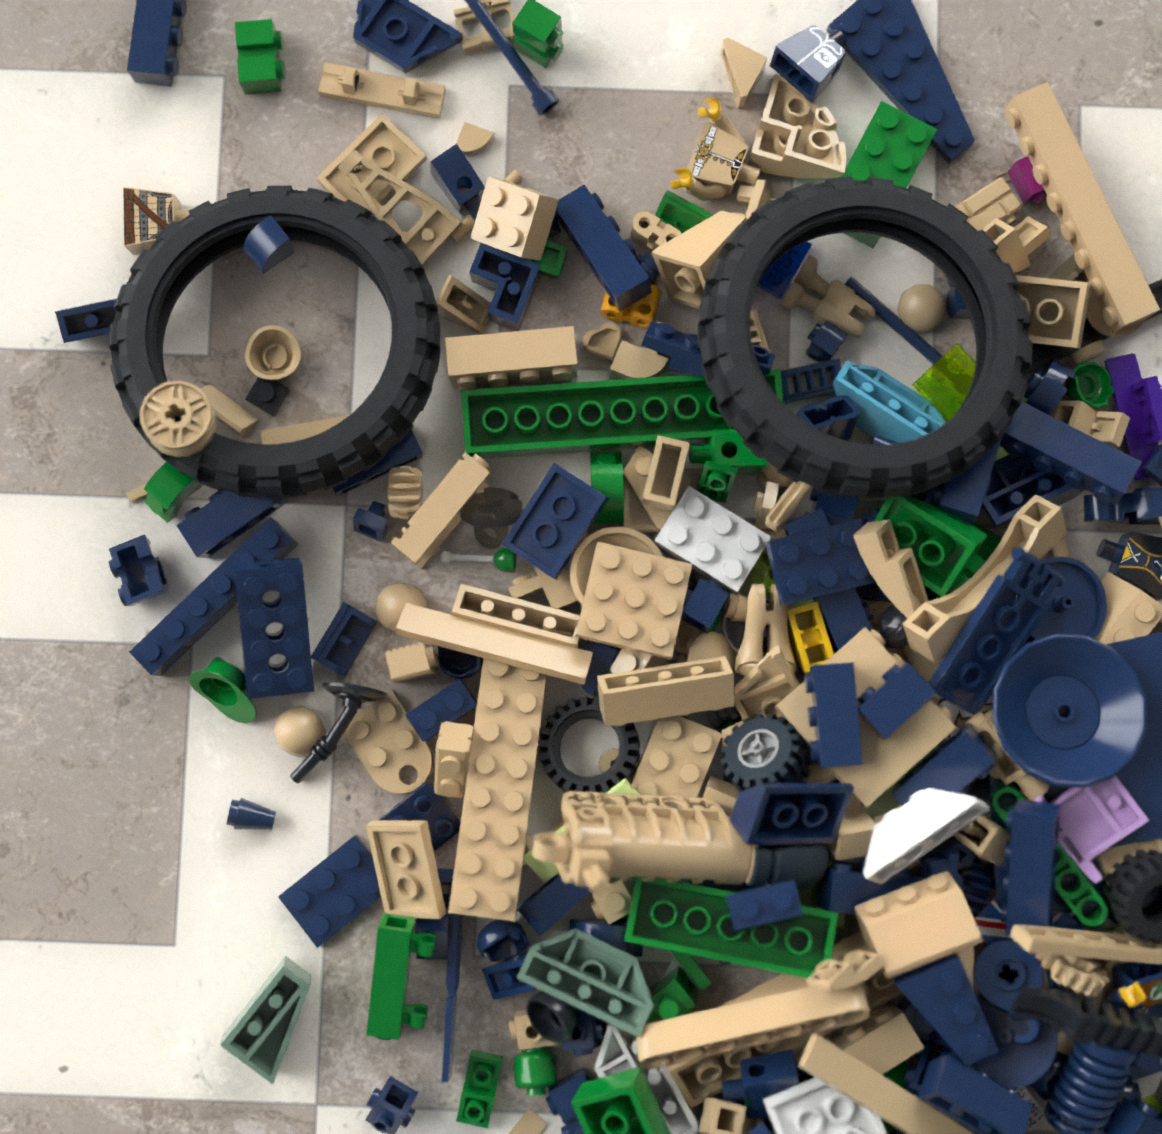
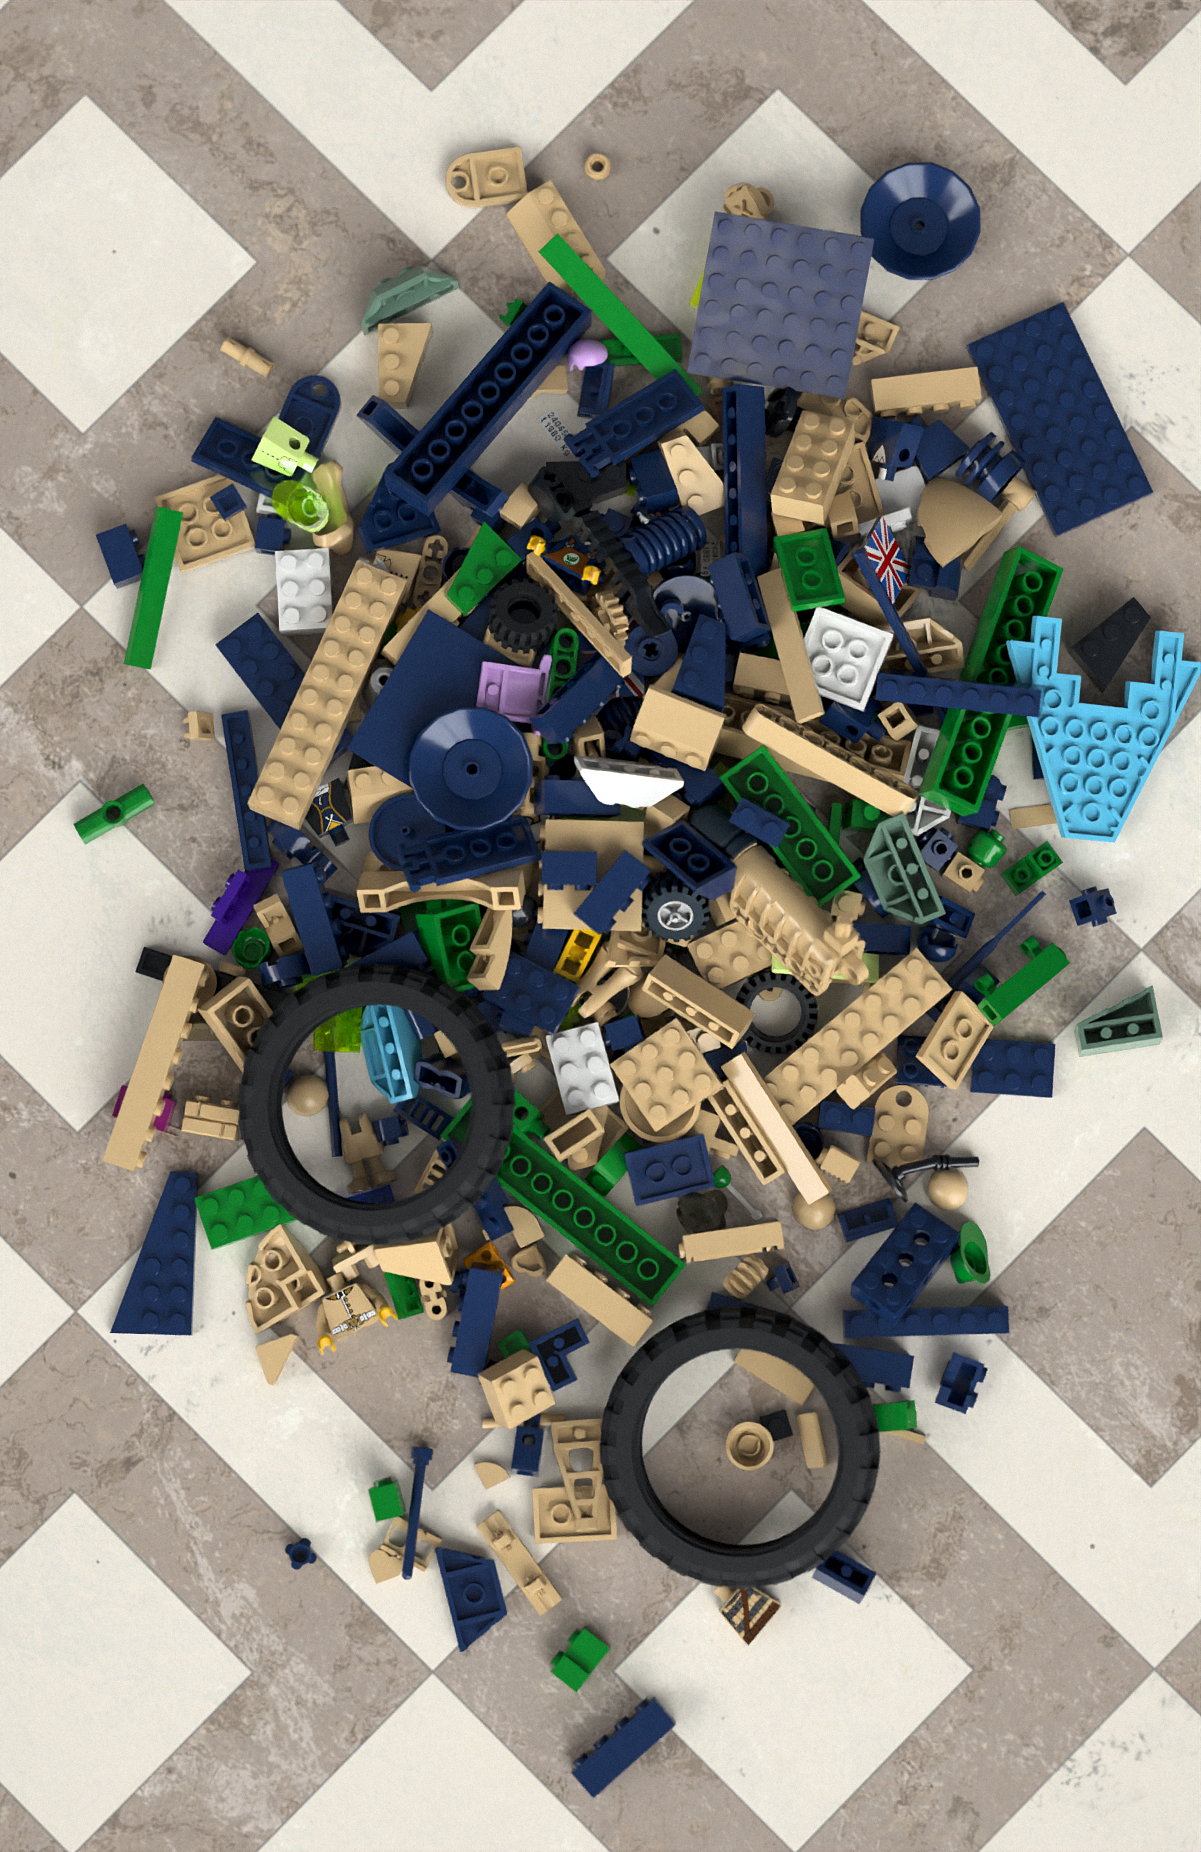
camera: 130 degrees left, 0 degrees up
(159, 415) = (862, 1433): tan wheel -> none
(250, 816) = (1025, 1163): dark blue cone -> none
(267, 245) = (691, 1509): dark blue brick -> none
(463, 305) = (597, 1364): tan slope -> none
(551, 1017) = (946, 871): black piece -> none
(716, 481) = (547, 1102): green slope -> none
(809, 60) = (226, 1320): torso -> none
(840, 975) = (752, 743): tan slope -> none
(1017, 242) = (220, 1079): tan brick -> none

